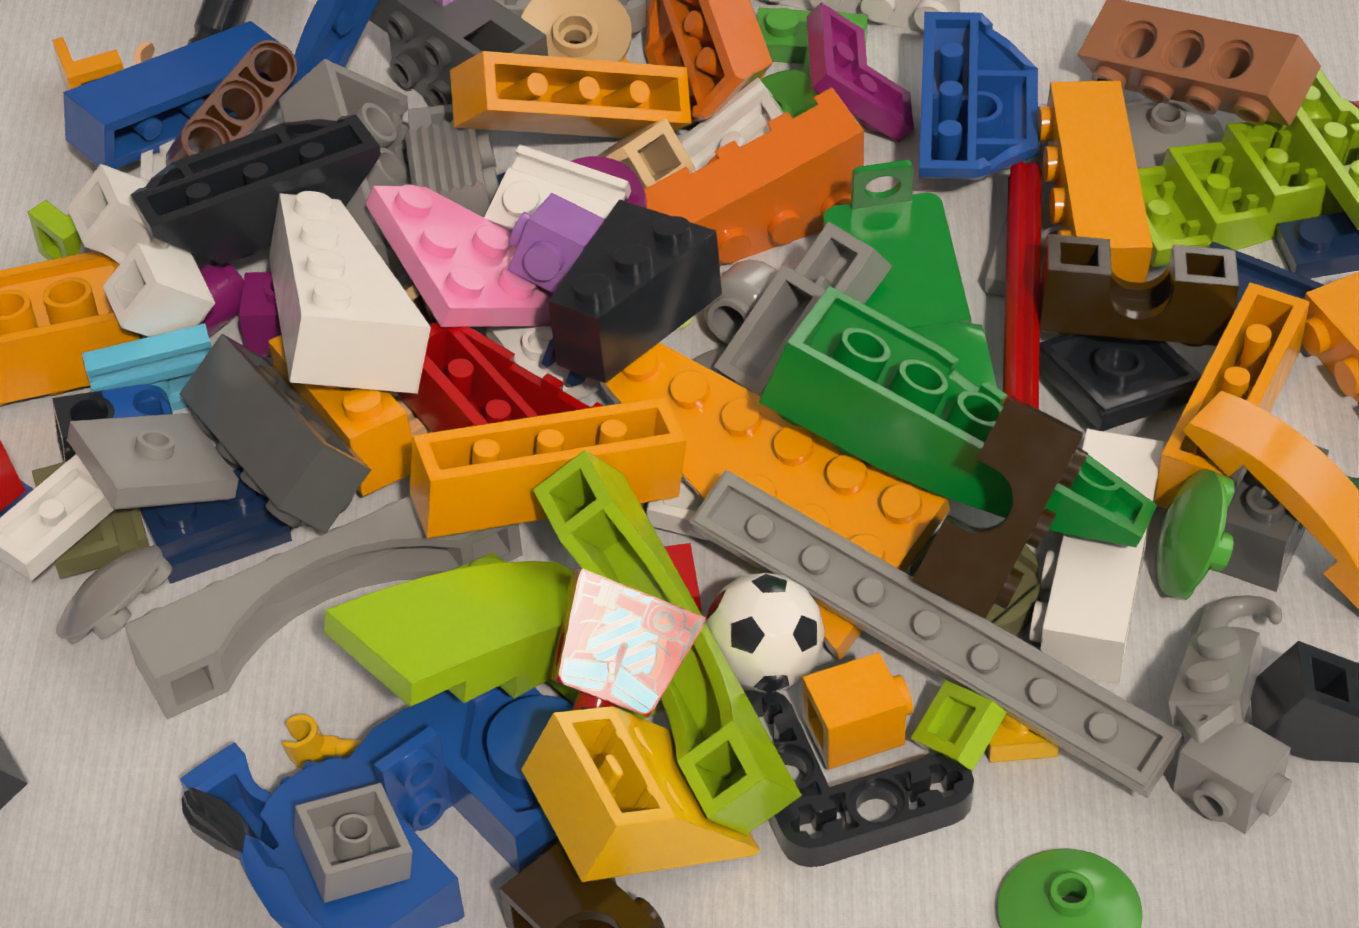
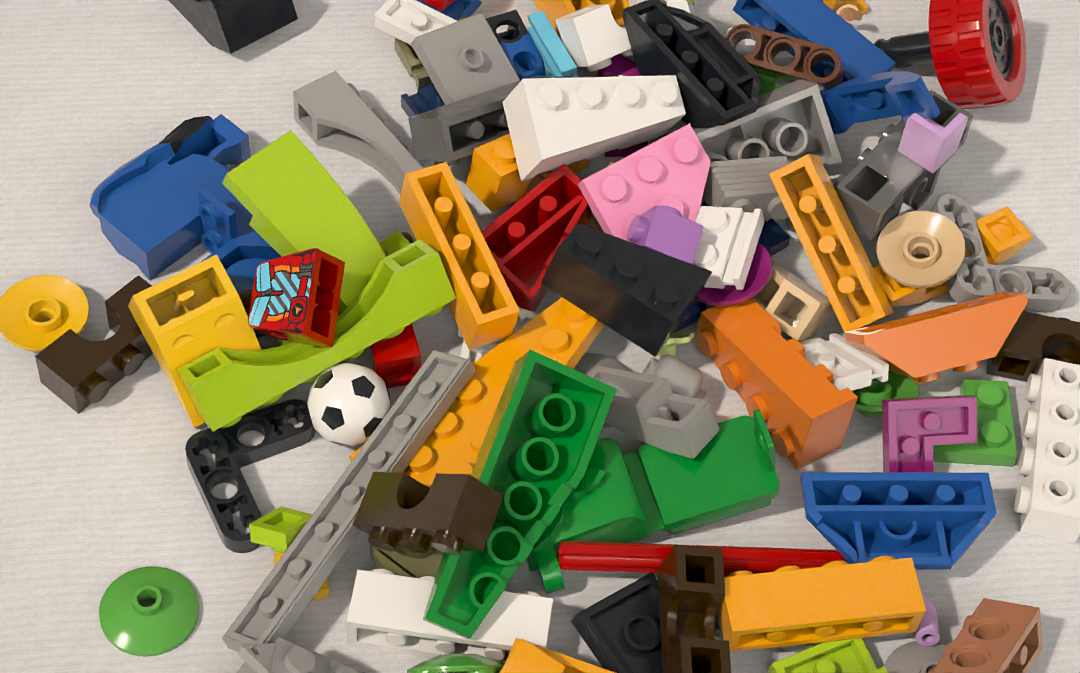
camera: 75 degrees right, 5 degrees up
(103, 596) = (377, 67): light grey dish -> none
(352, 842) = (158, 190): light grey piece -> none
(855, 710) = (291, 464): light orange brick -> none

